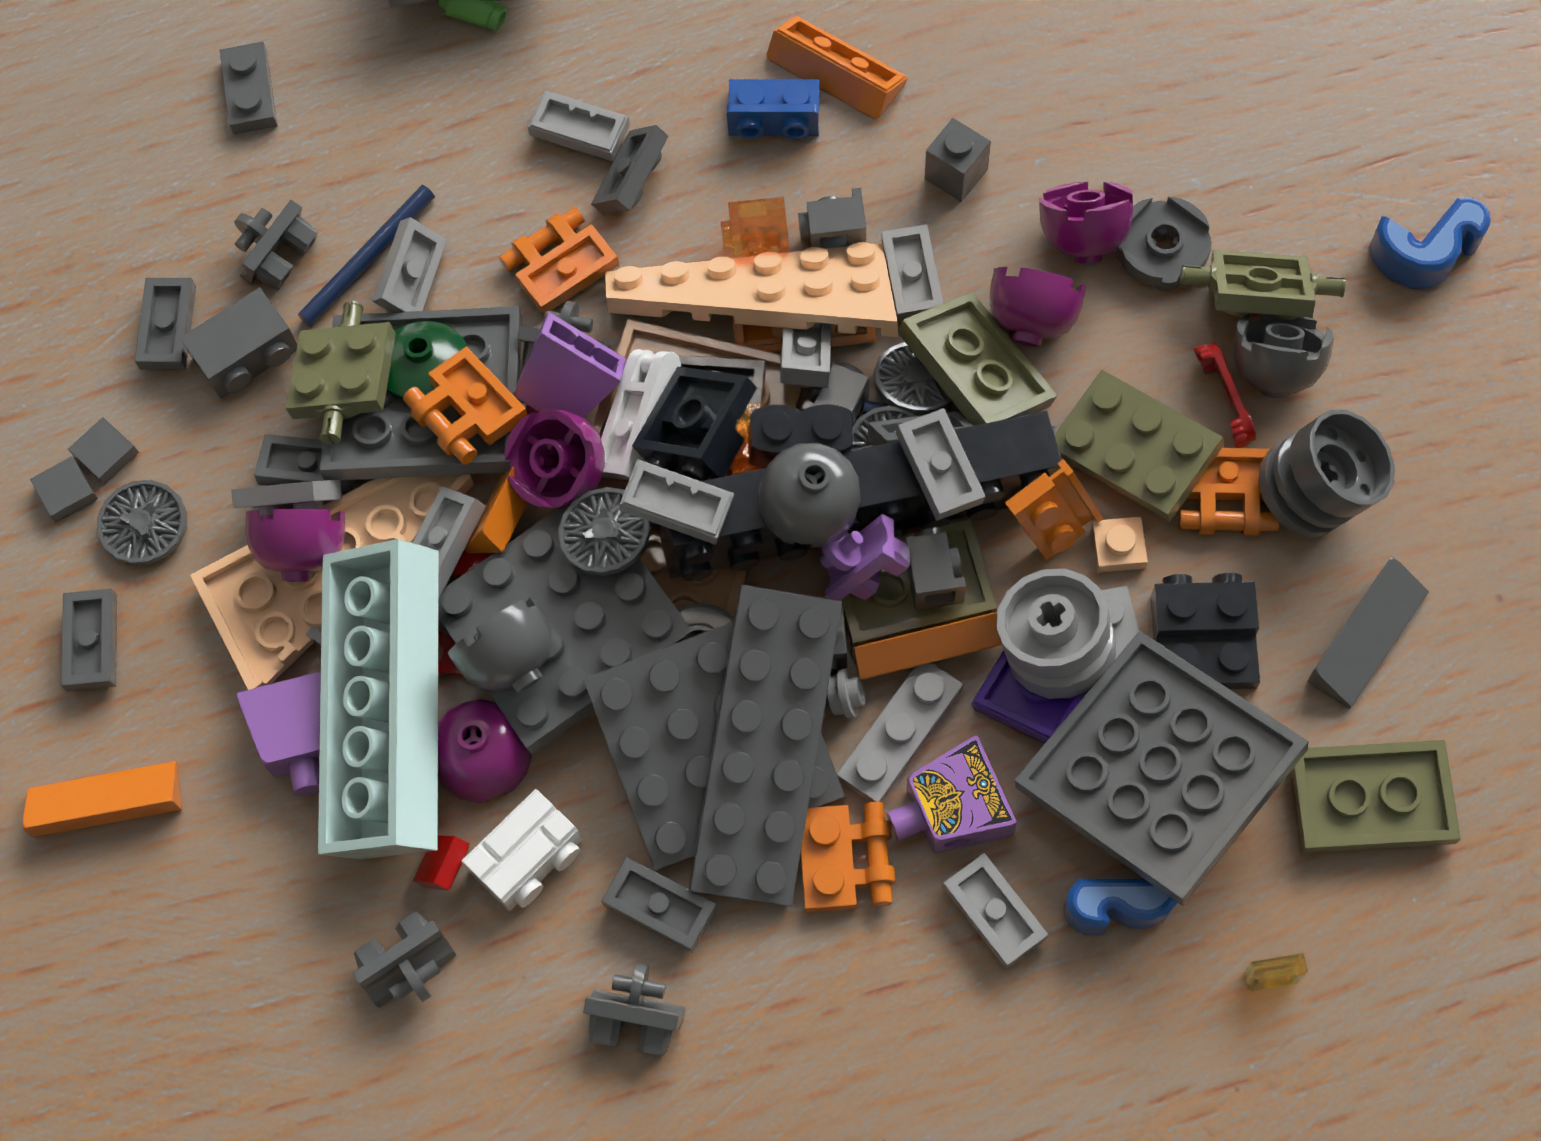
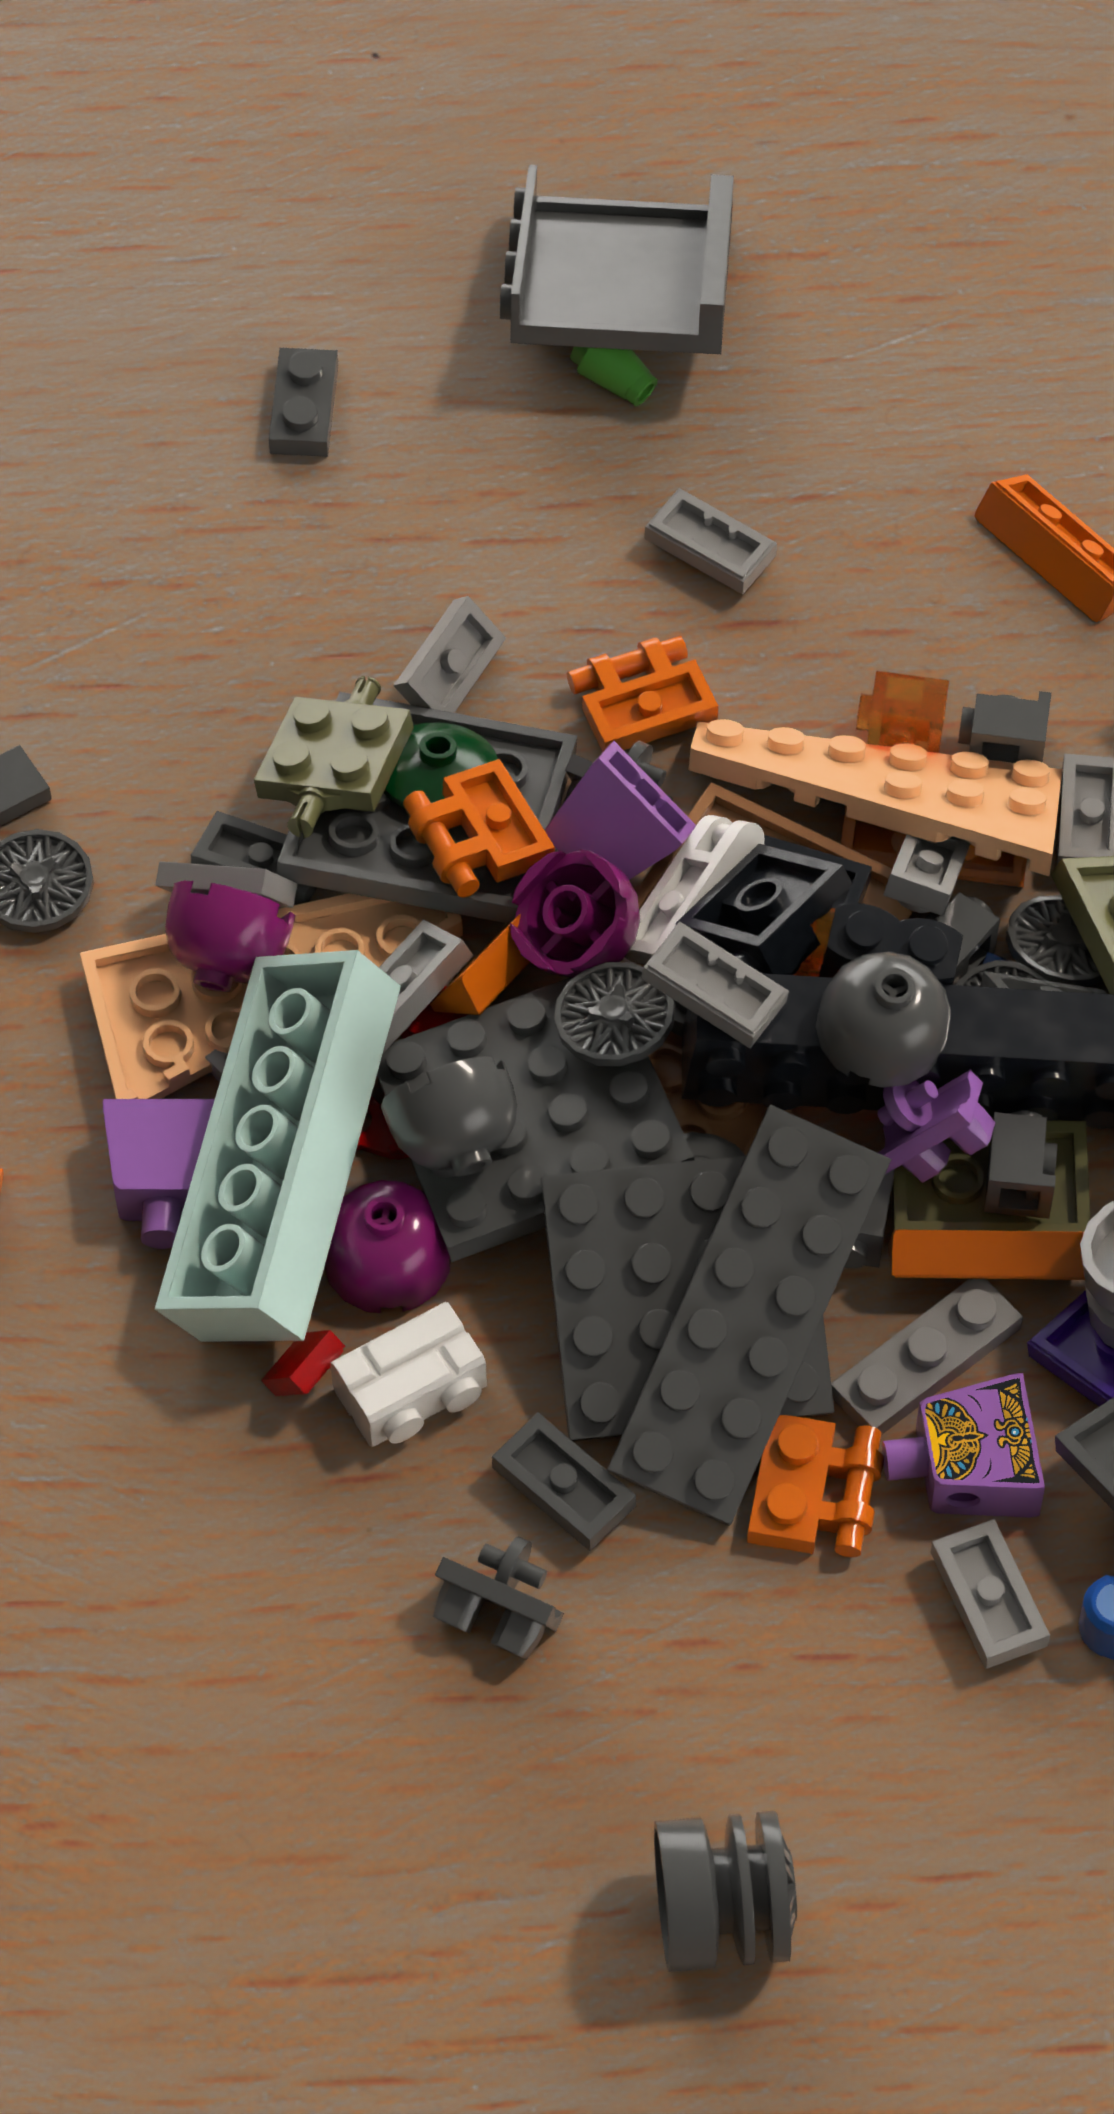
camera: 10 degrees right, 10 degrees down
(163, 320) = (126, 654): dark grey plate -> none
(240, 343) = (214, 698): dark grey brick -> none
(263, 261) = (269, 607): dark grey hips -> none
(364, 257) = (395, 635): dark blue bar -> none
(404, 965) = (226, 1468): dark grey hips -> none
(629, 170) = (762, 606): dark grey plate -> none
(773, 108) = (966, 577): blue bracket -> none
(845, 694) = (868, 1291): light grey plate -> none
(940, 464) = (1058, 1025): light grey plate -> none

